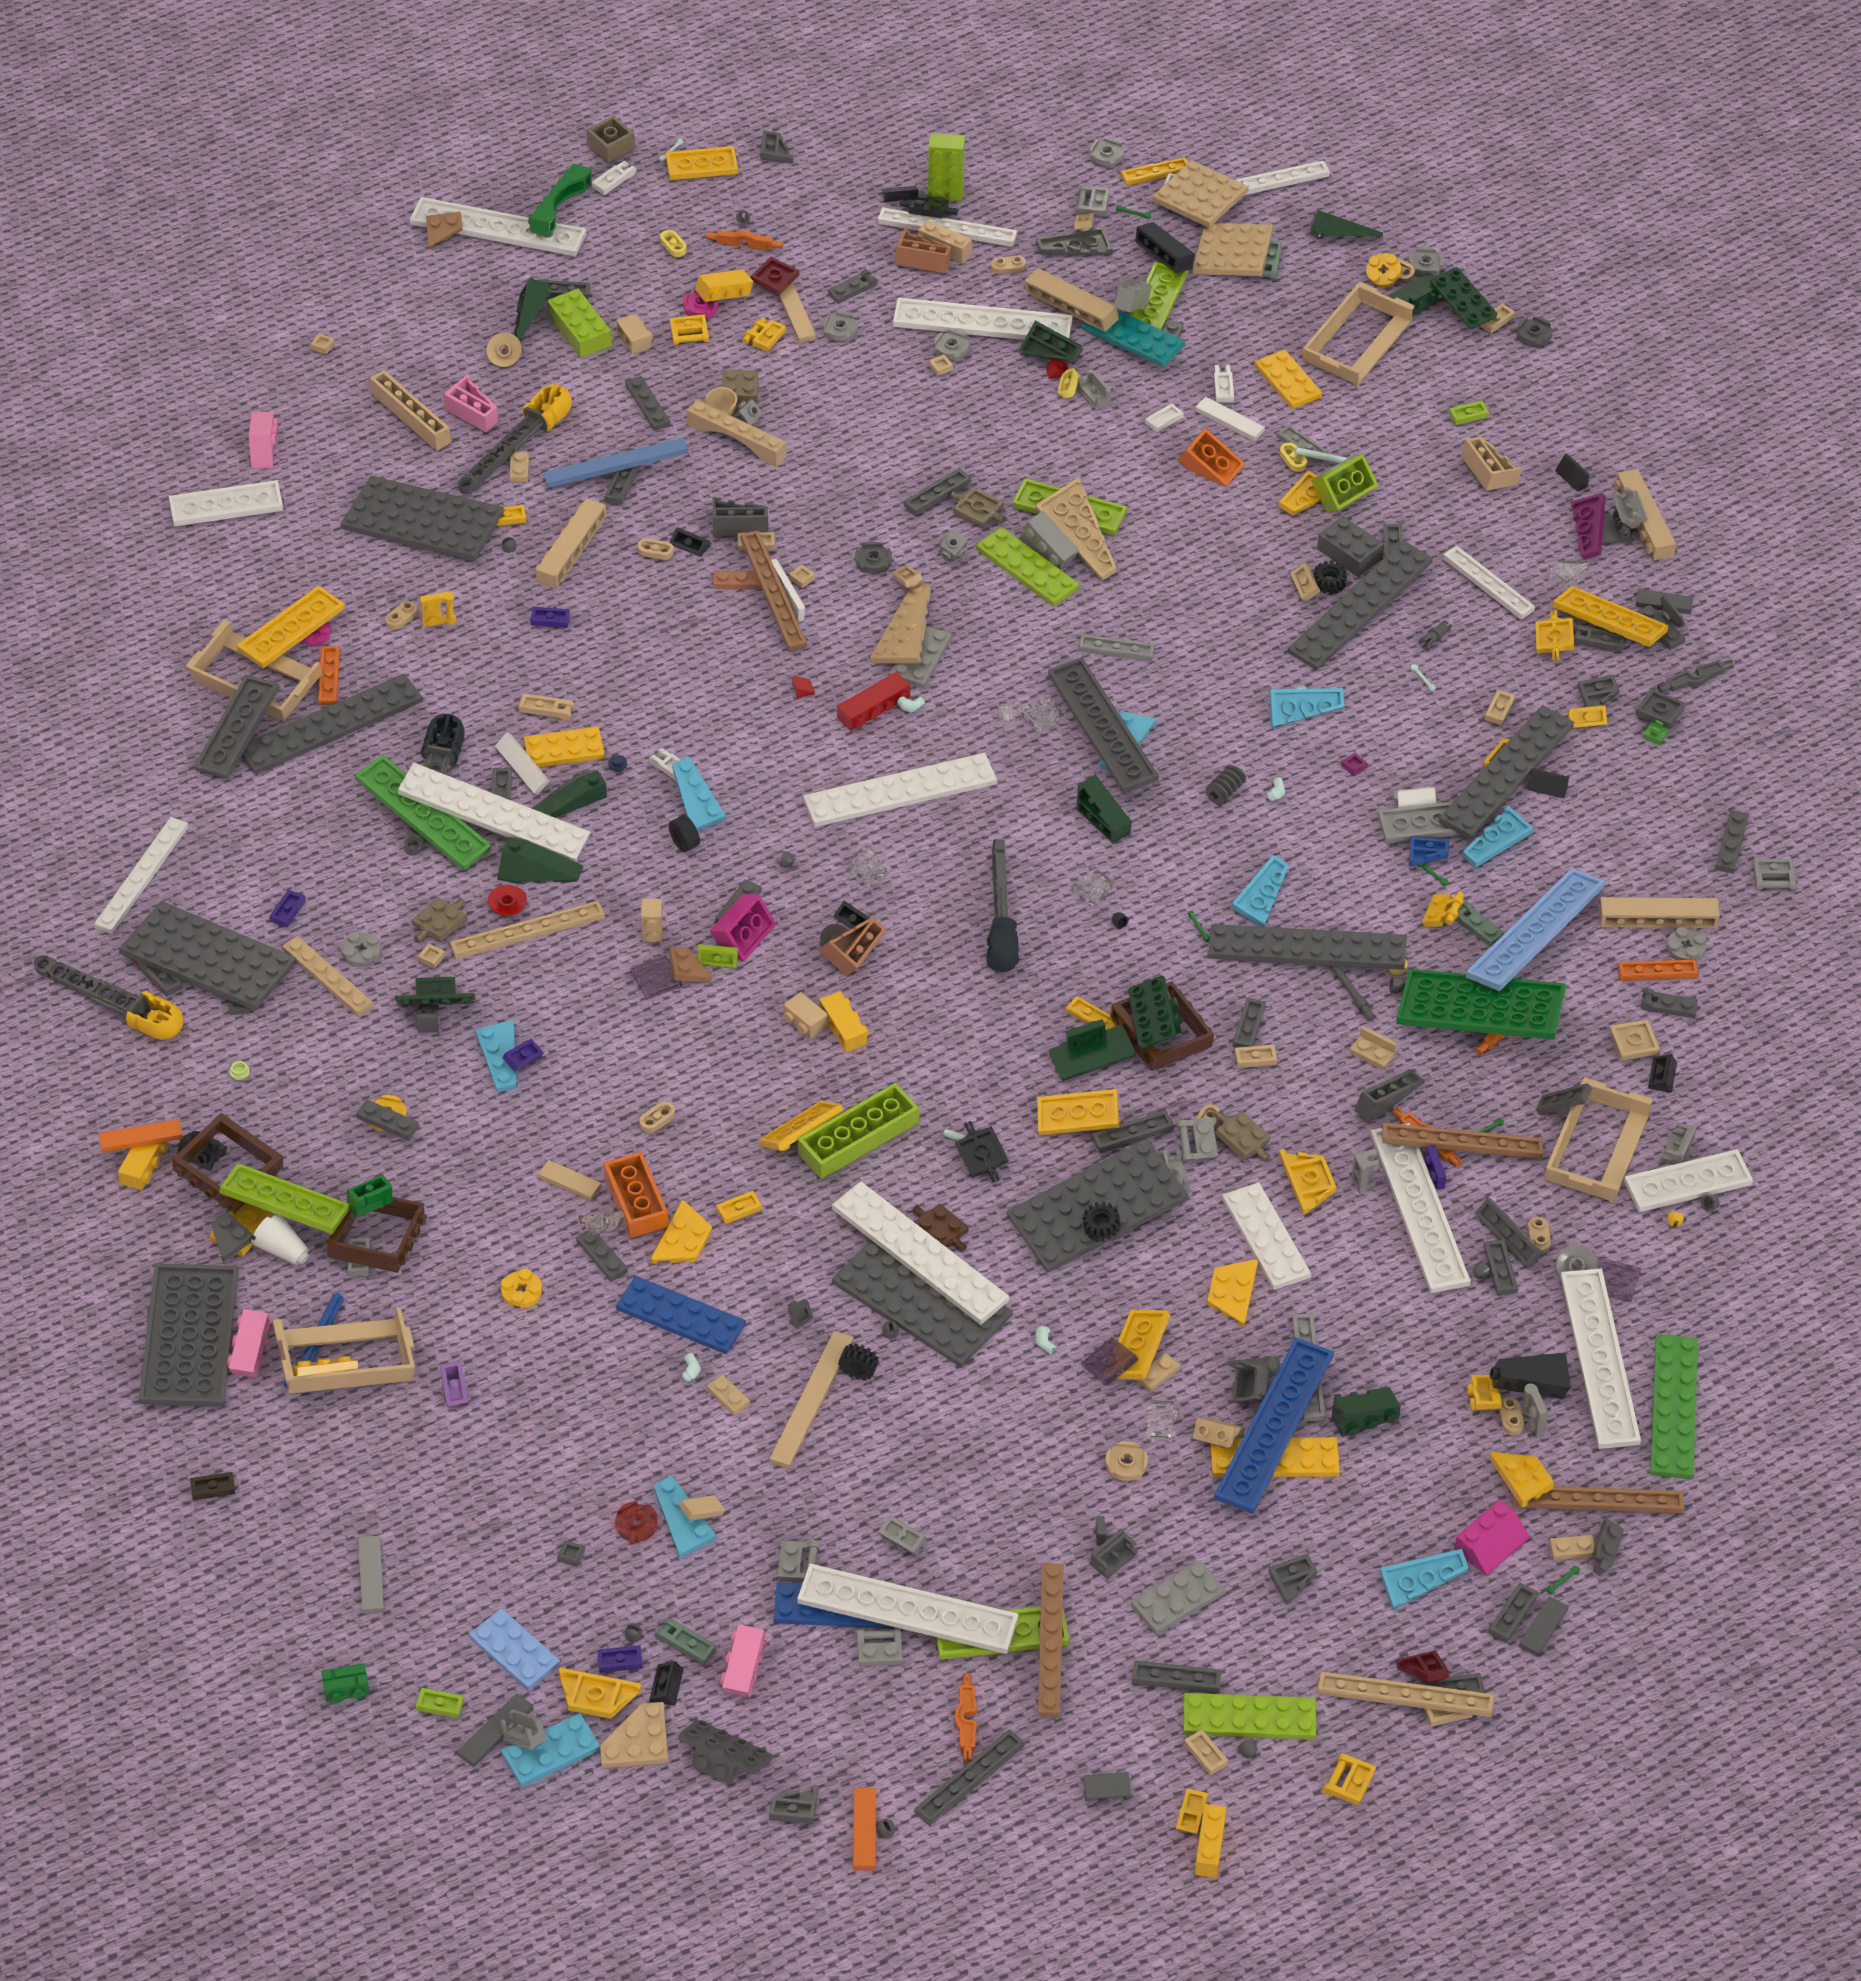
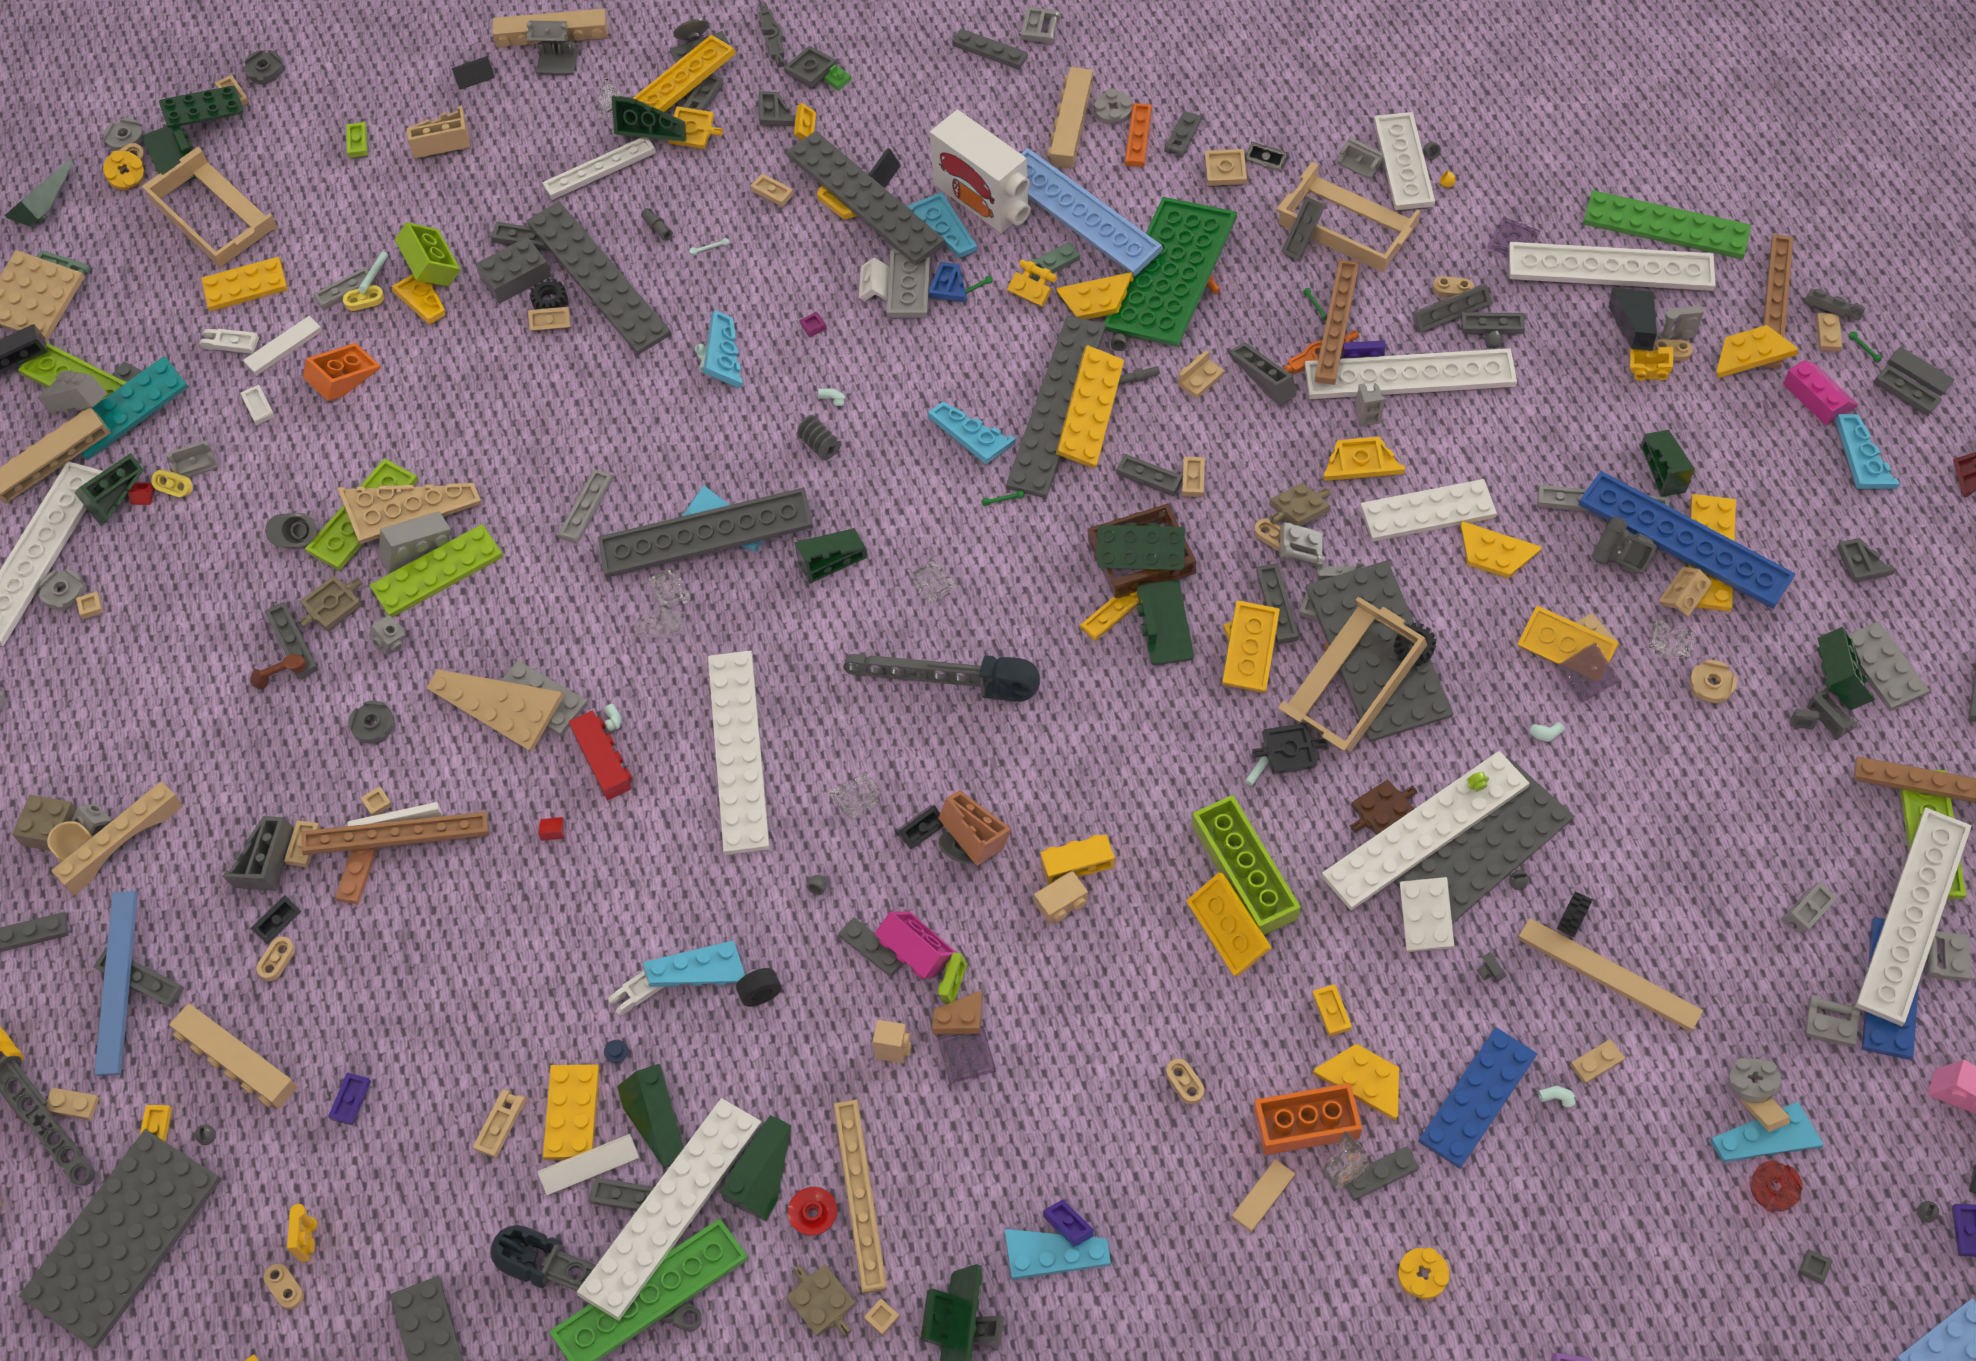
camera: 75 degrees left, 10 degrees up
(686, 1641) = (1944, 1154): sand green plate -> none
(737, 1495) = (1766, 1086): none -> light grey plate
(838, 1261) = (1427, 914): none -> white plate
(907, 576) = (419, 689): tan plate -> none
(910, 492) = (293, 662): none -> copper bar
(968, 1275) = (1478, 781): none -> lime plate
(1019, 1155) = (1333, 660): none -> tan piece
(1038, 464) = (291, 530): none -> dark grey piece
(1120, 920) = (980, 567): black hinge -> none
(1157, 1553) = (1842, 669): none -> dark green wedge
(1309, 967) = (1090, 407): none -> yellow plate
(1439, 957) = (1097, 296): none -> yellow wing
(1542, 593) = (642, 120): none -> dark green wedge
(1546, 838) = (980, 171): none -> white brick
(1573, 1254) = (1497, 261): light grey dish -> none
(1589, 523) = (545, 71): magenta wing -> none
(1681, 602) = (665, 40): dark grey tile -> none

